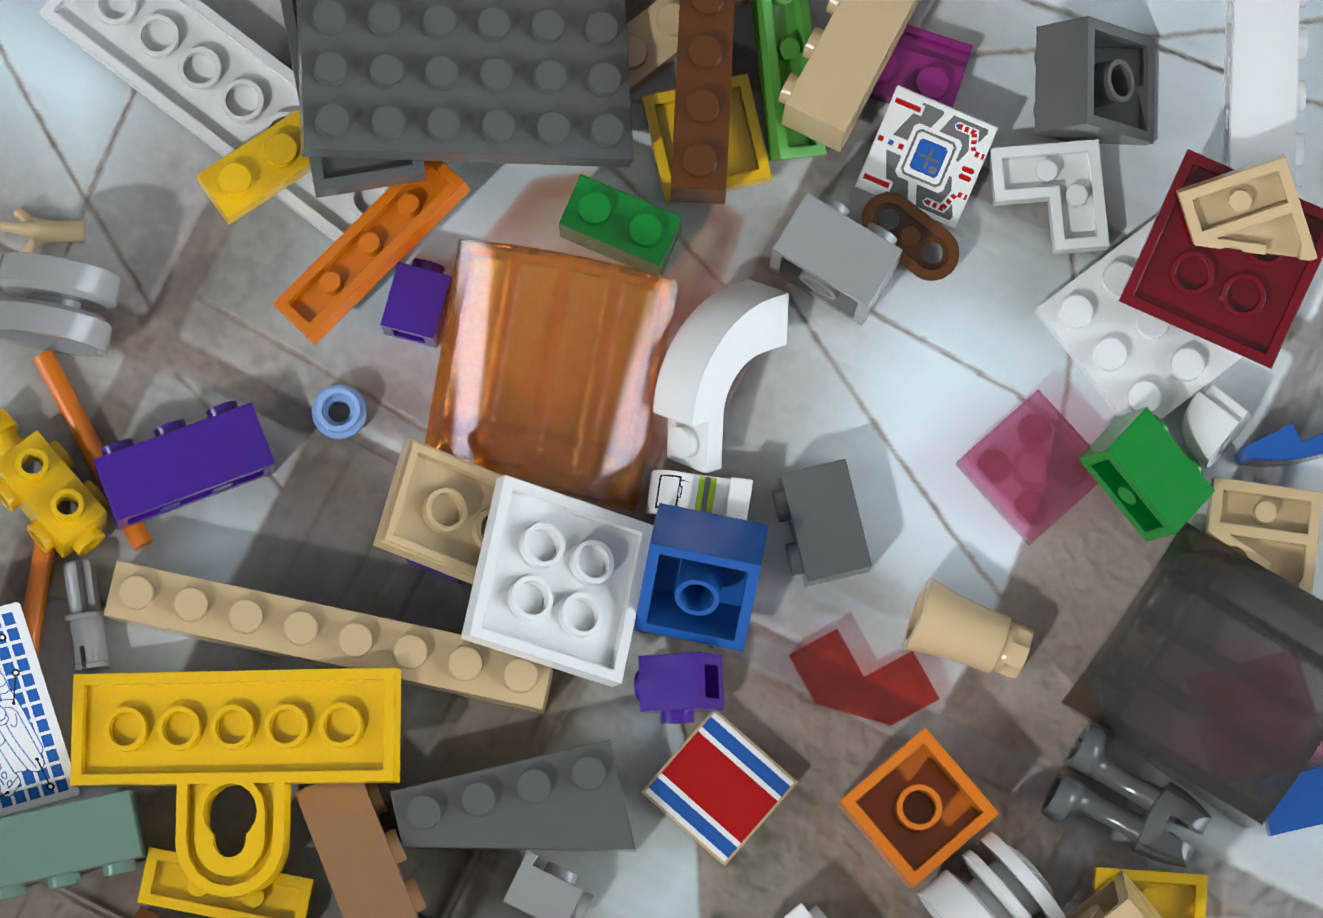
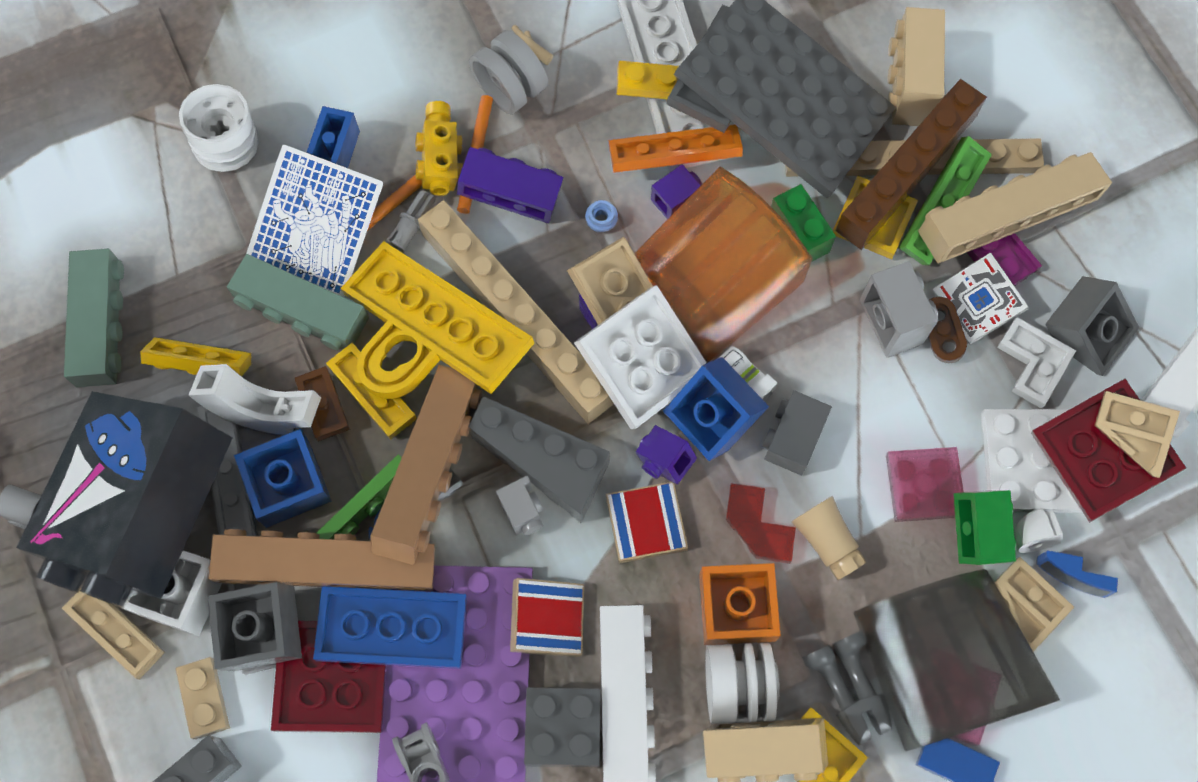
camera: 40 degrees right, 10 degrees down
(706, 359) = (794, 309): white arch -> none

